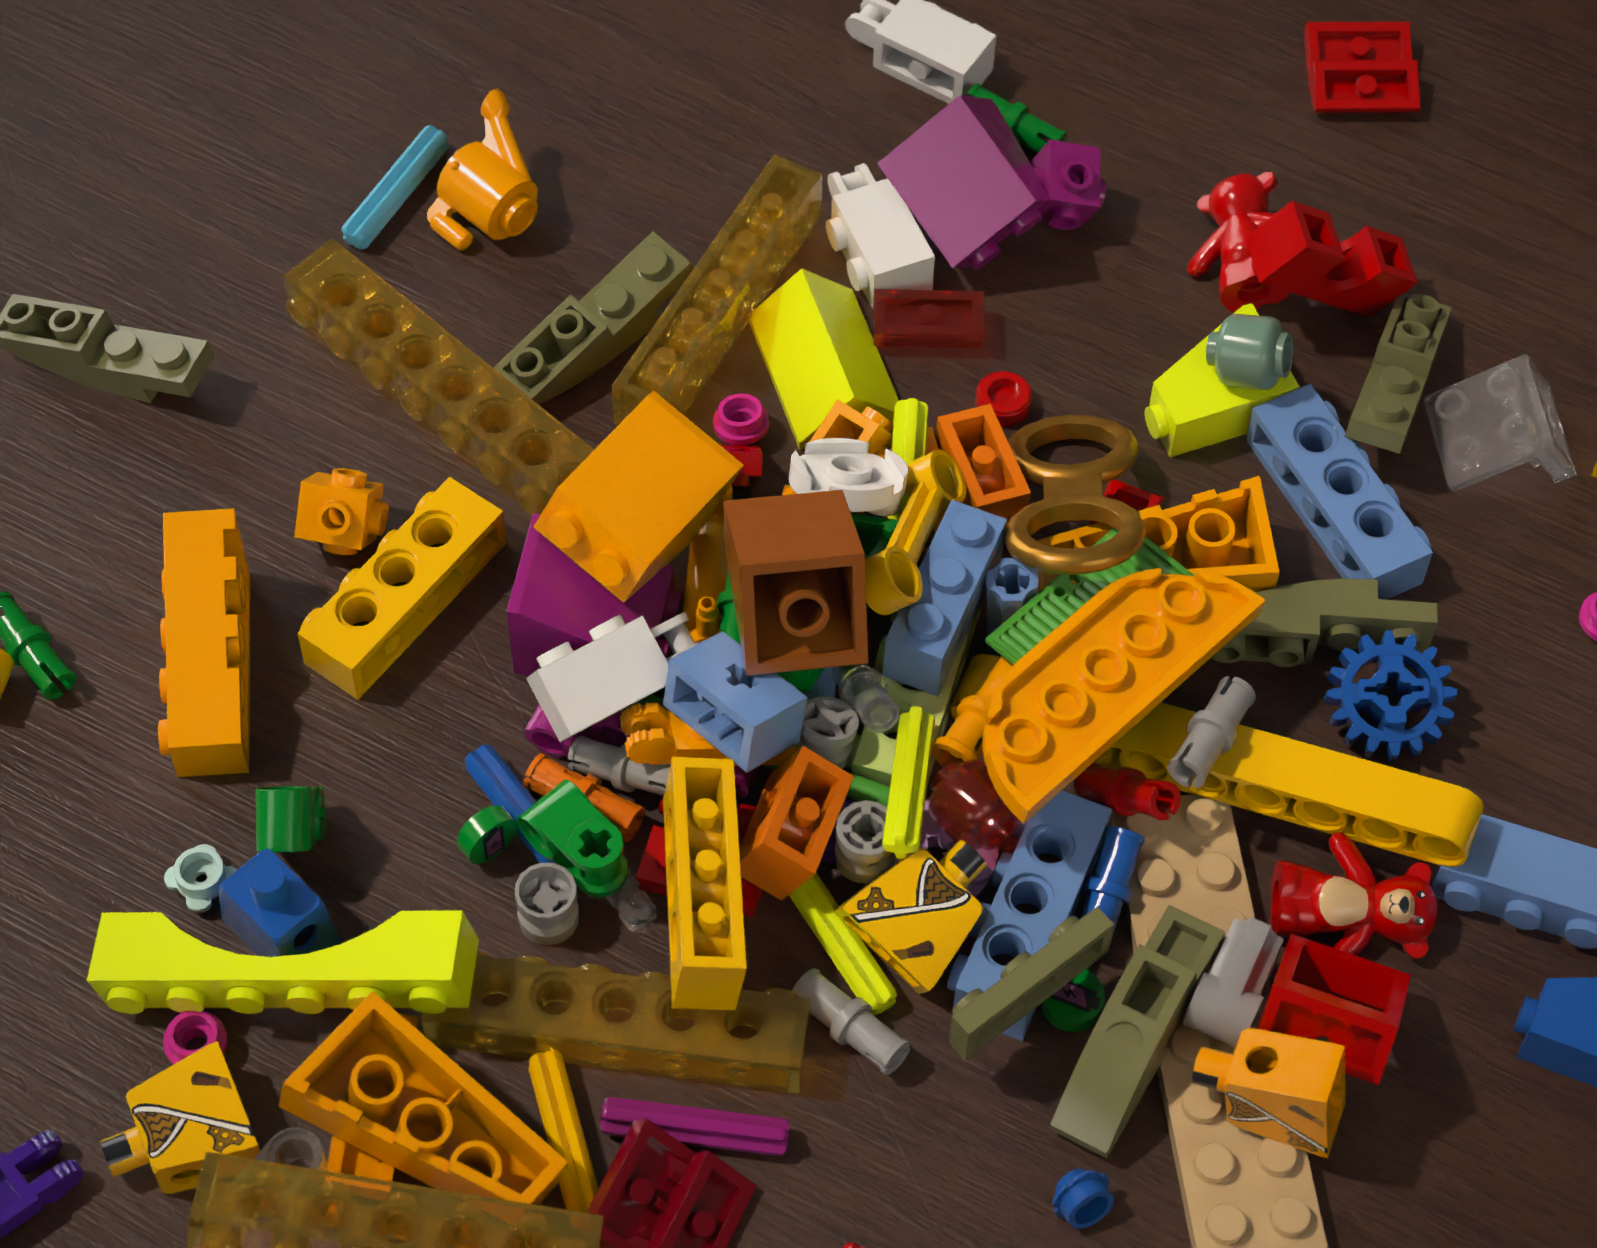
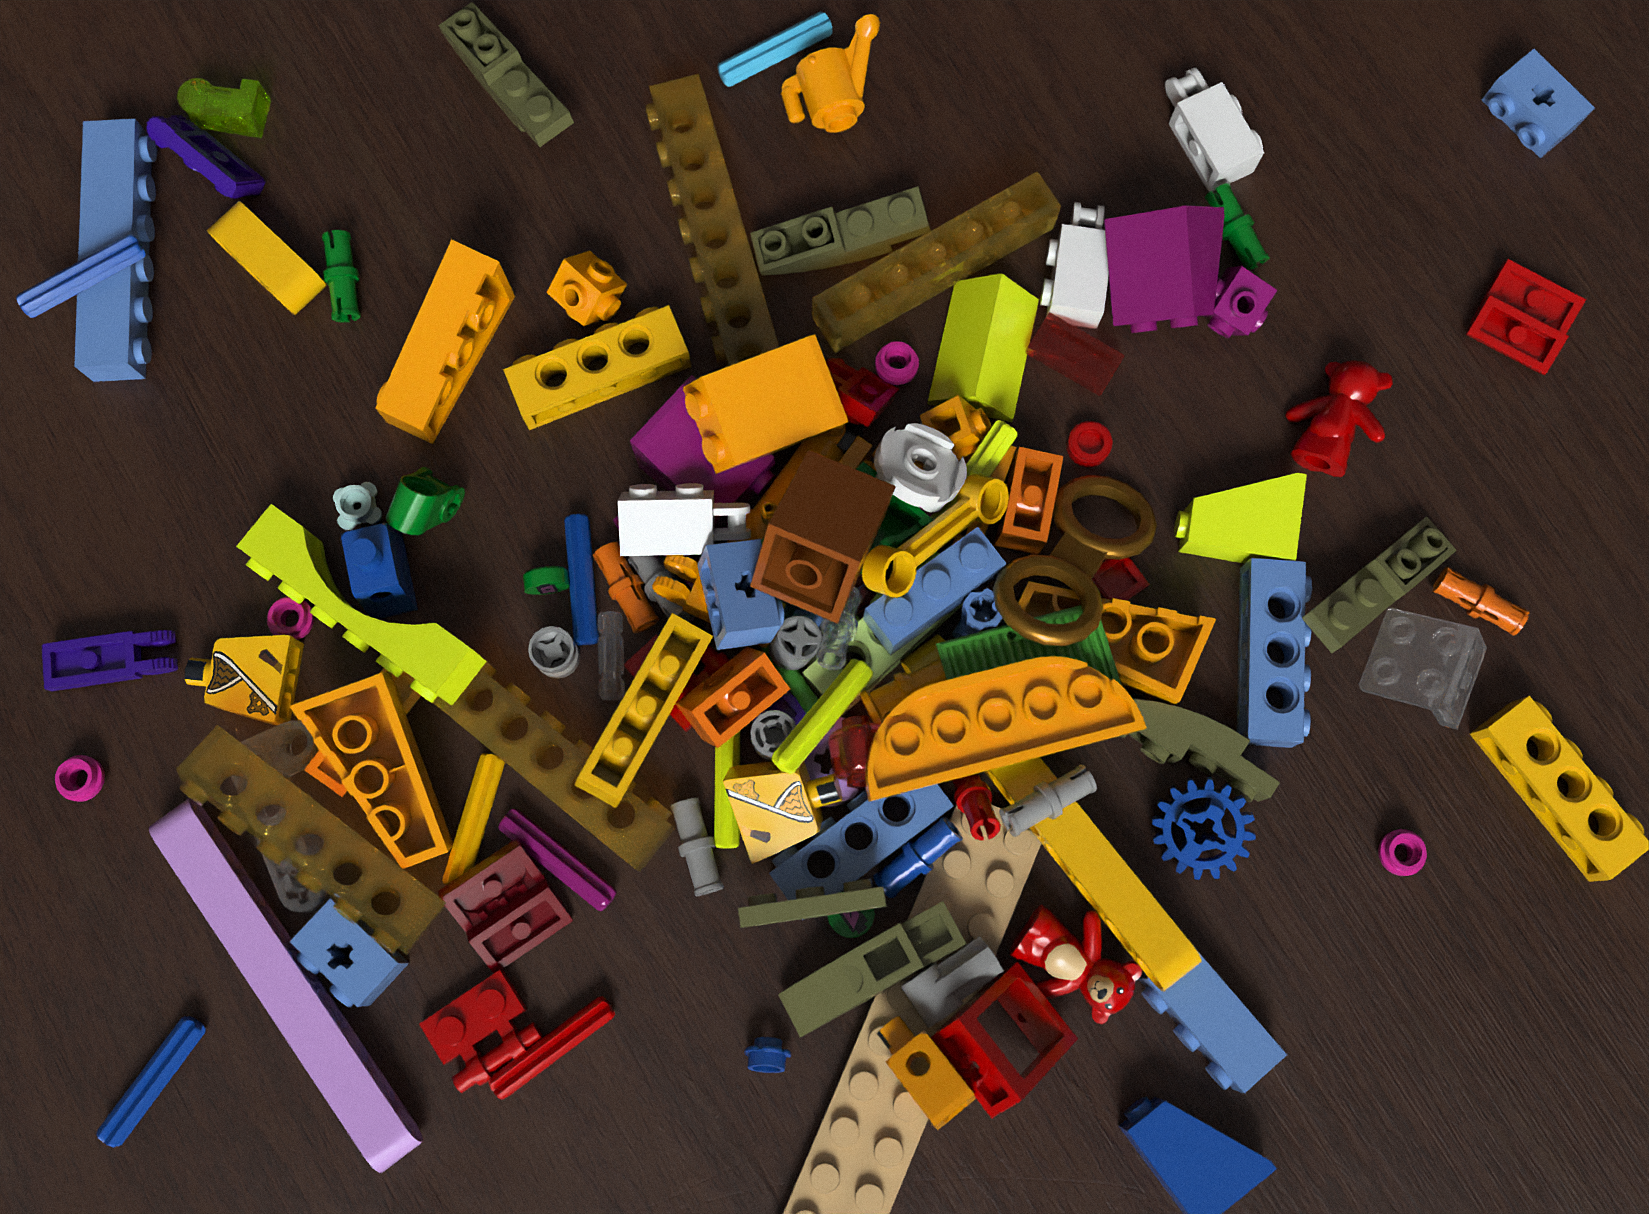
camera: 30 degrees right, 20 degrees up
(577, 837) = (592, 616): green piece -> none
(1250, 351) = (1273, 519): sand green head -> none
(1303, 256) = (1367, 467): red arch -> none
(1510, 342) = (1481, 601): none -> orange pin

